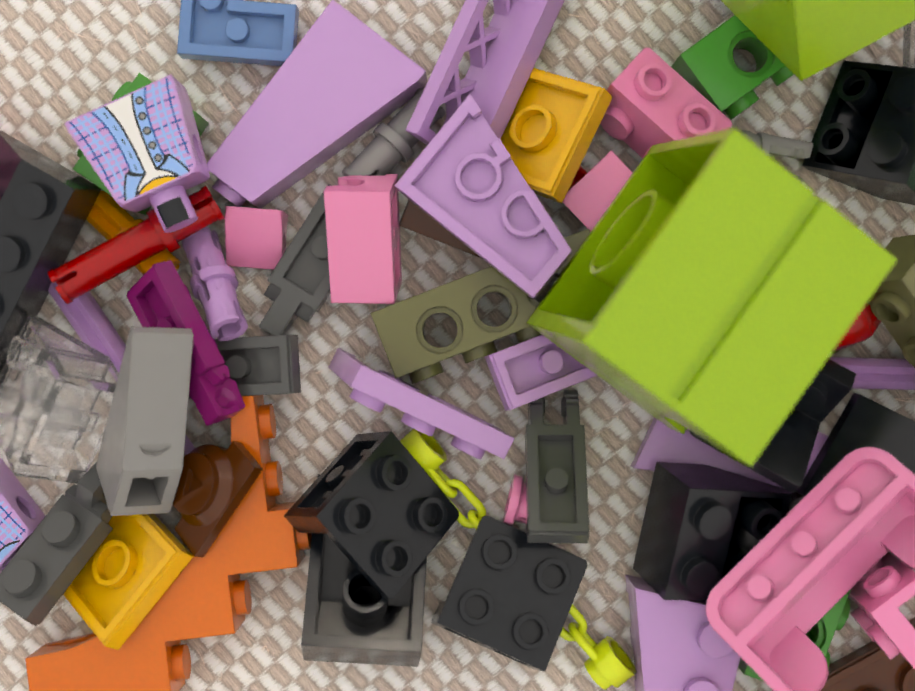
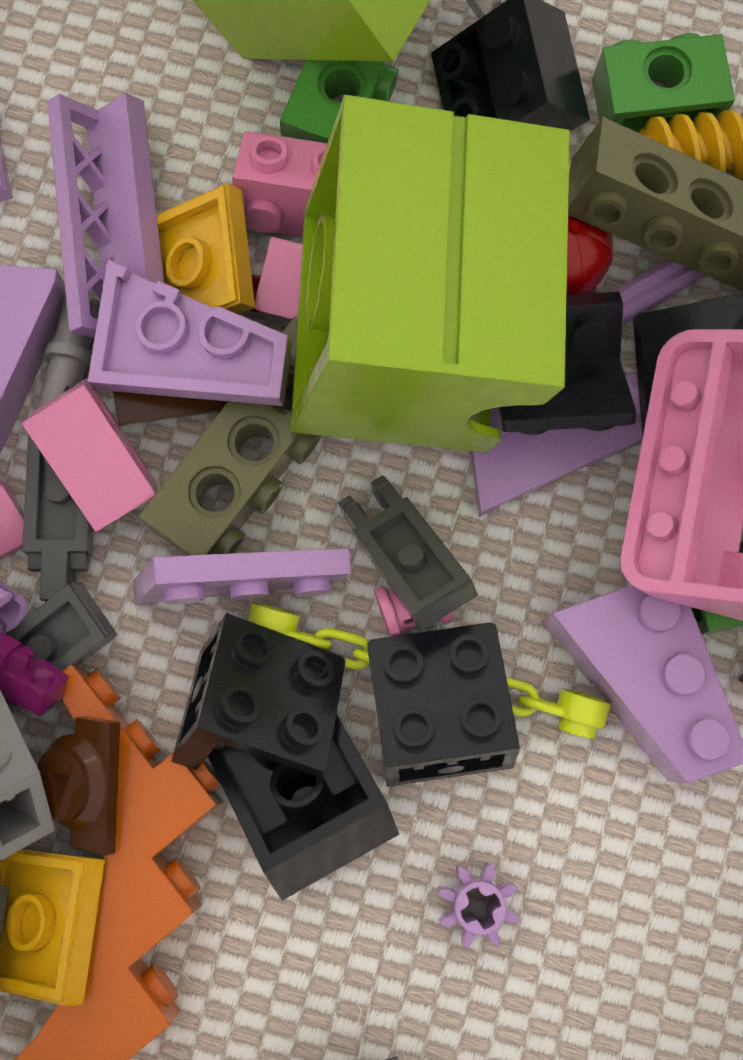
camera: 35 degrees left, 10 degrees down
(533, 371) = (328, 475): lavender hinge -> none
(702, 526) = (574, 521): black slope -> none

